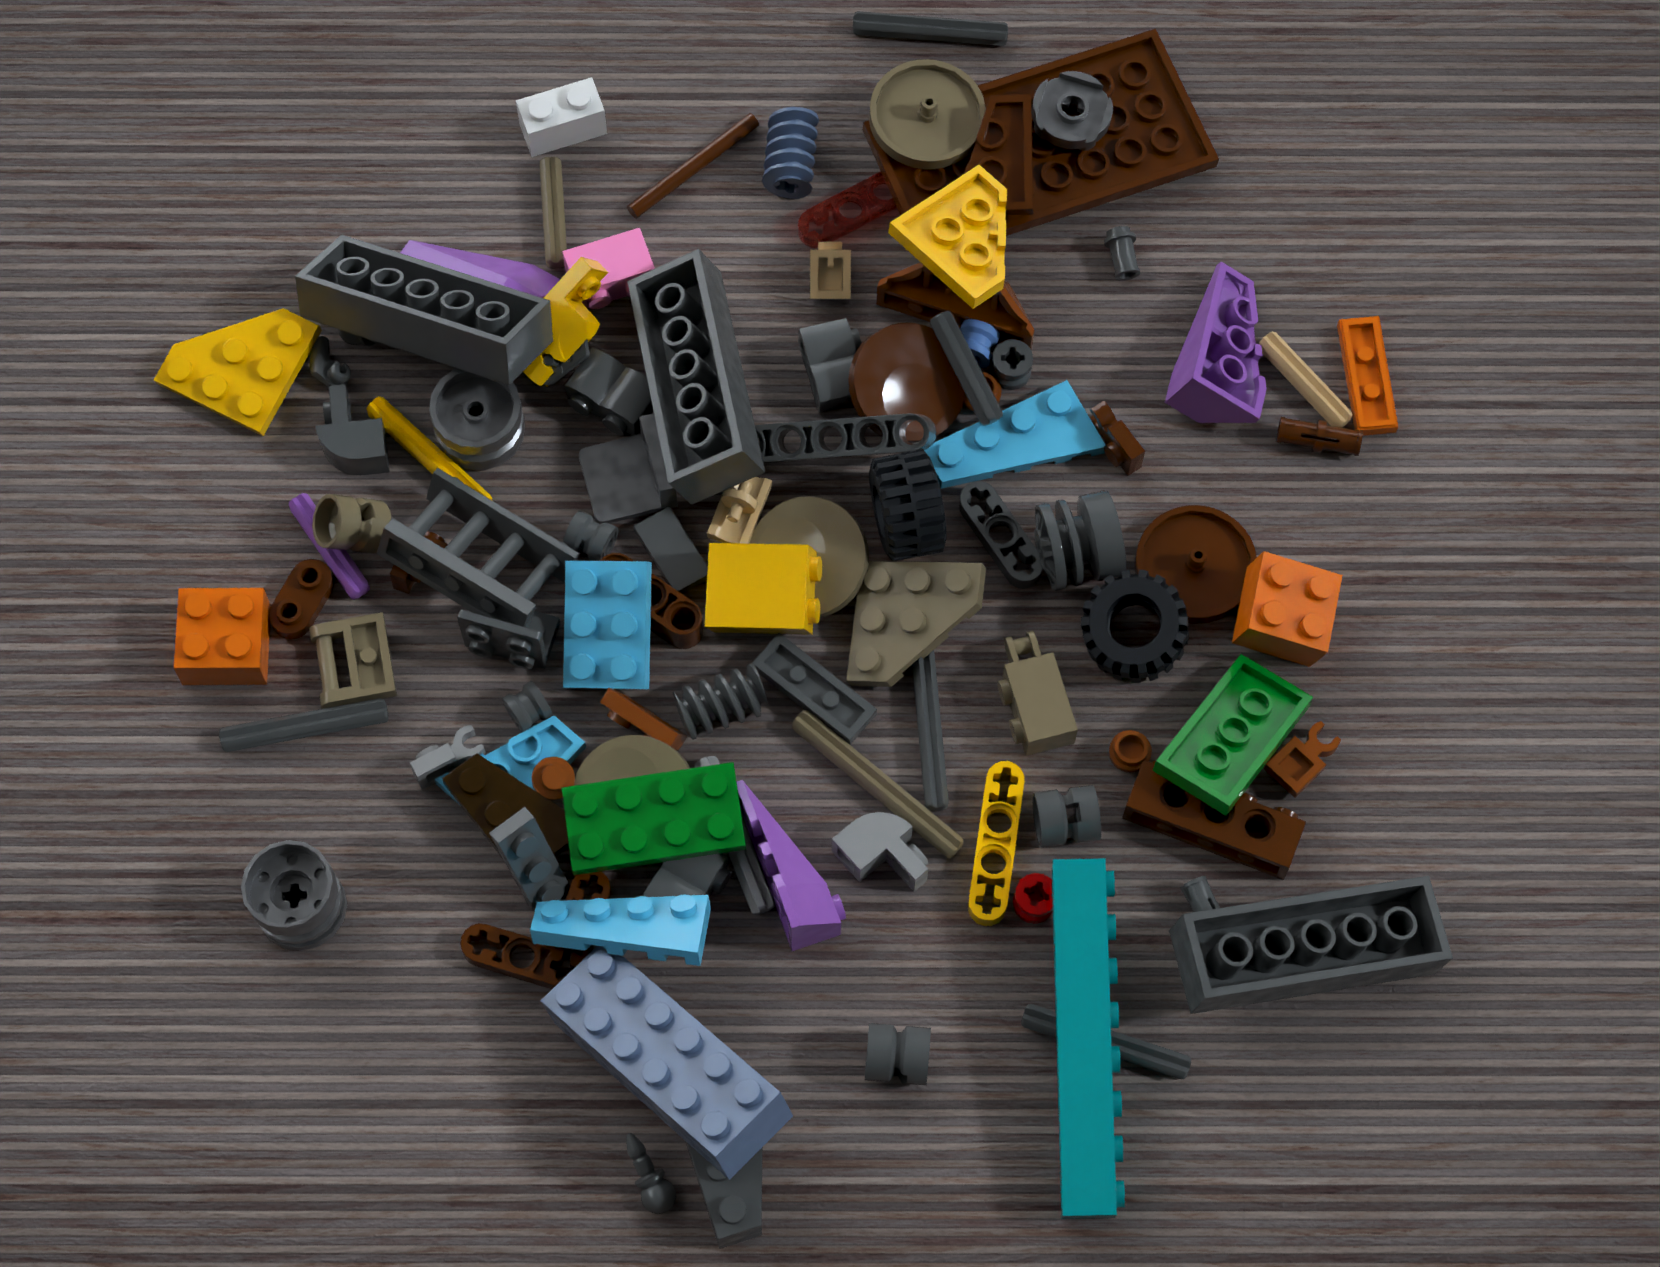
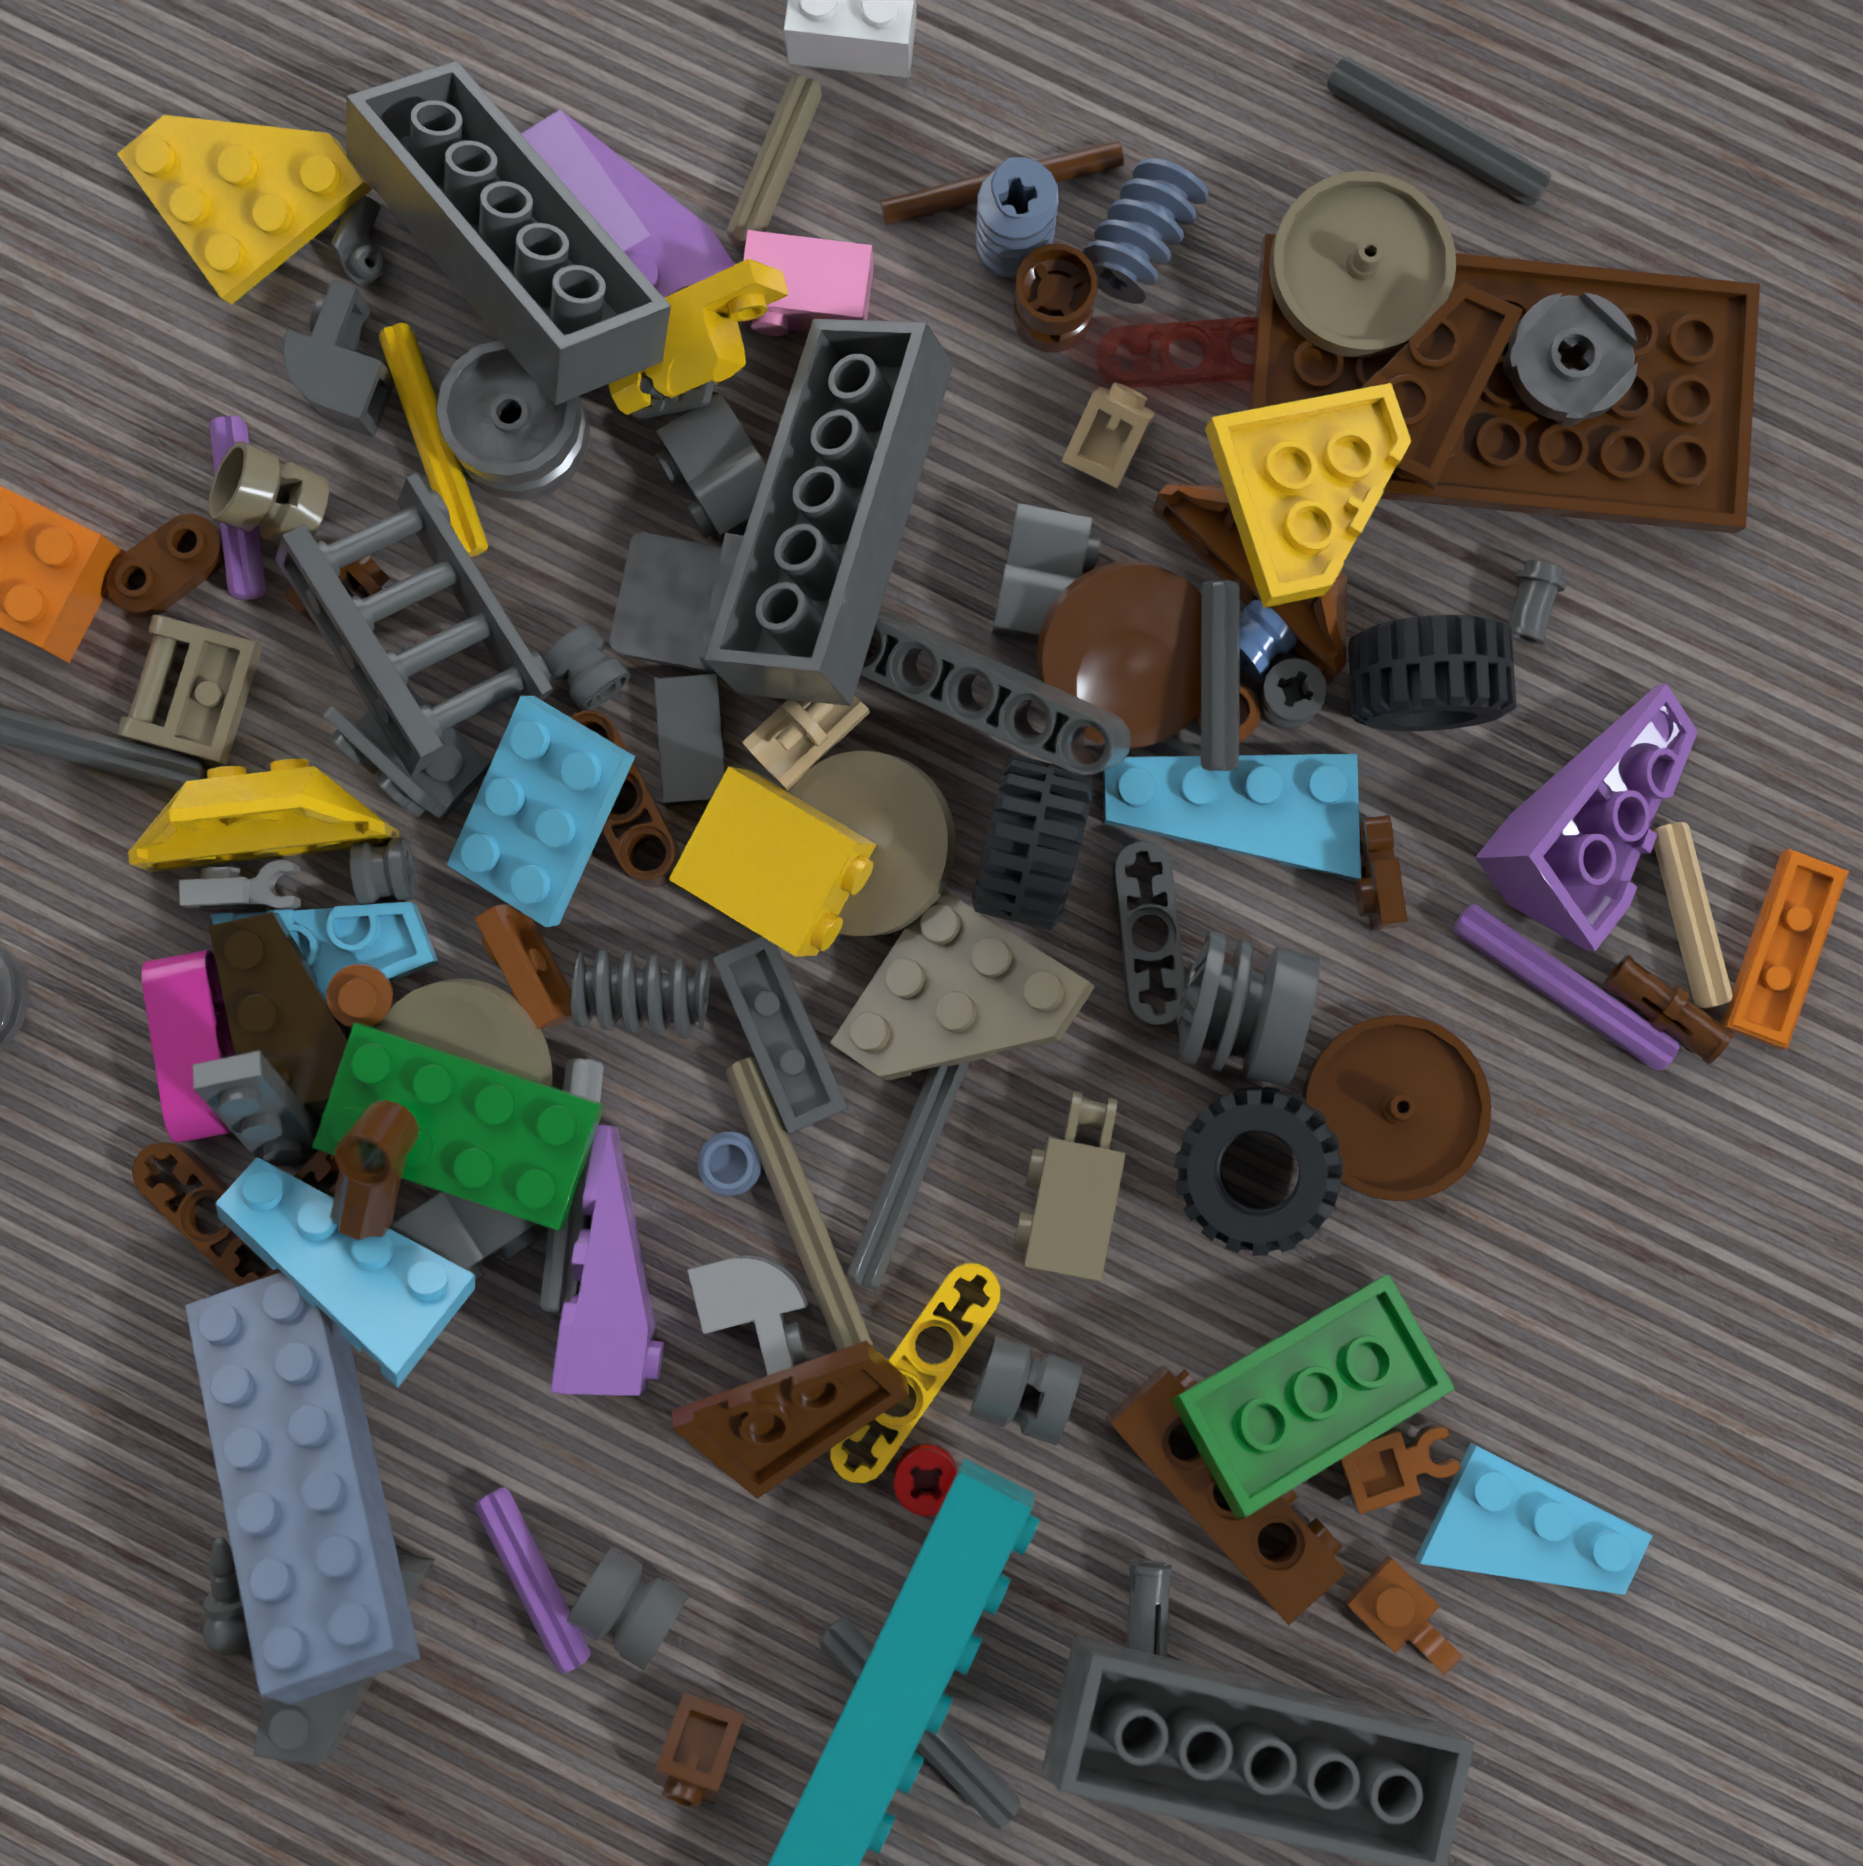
camera: 30 degrees right, 15 degrees up
(437, 710) = (257, 817): none -> yellow wedge
(462, 861) = (185, 1029): none -> dark pink beam
(619, 859) = (371, 1169): none -> reddish brown piece
(716, 176) = (1015, 214): none -> sand blue piece
(760, 211) = (1055, 283): none -> reddish brown wheel
(822, 778) = (729, 1163): none -> sand blue plate
(830, 1073) = (532, 1580): none -> medium lavender axle
(937, 892) = (792, 1416): none -> reddish brown wing
(983, 1122) = (697, 1751): none -> reddish brown bracket
(1085, 311) = (1432, 673): none -> black tyre
(1129, 750) = (1164, 1333): dark orange plate -> none
(1255, 452) = (1566, 987): none -> medium lavender axle
(1287, 609) = (1486, 1247): orange brick -> none
(1349, 840) = (1399, 1611): none -> dark orange plate
(1399, 758) = (1529, 1529): none -> medium azure wing

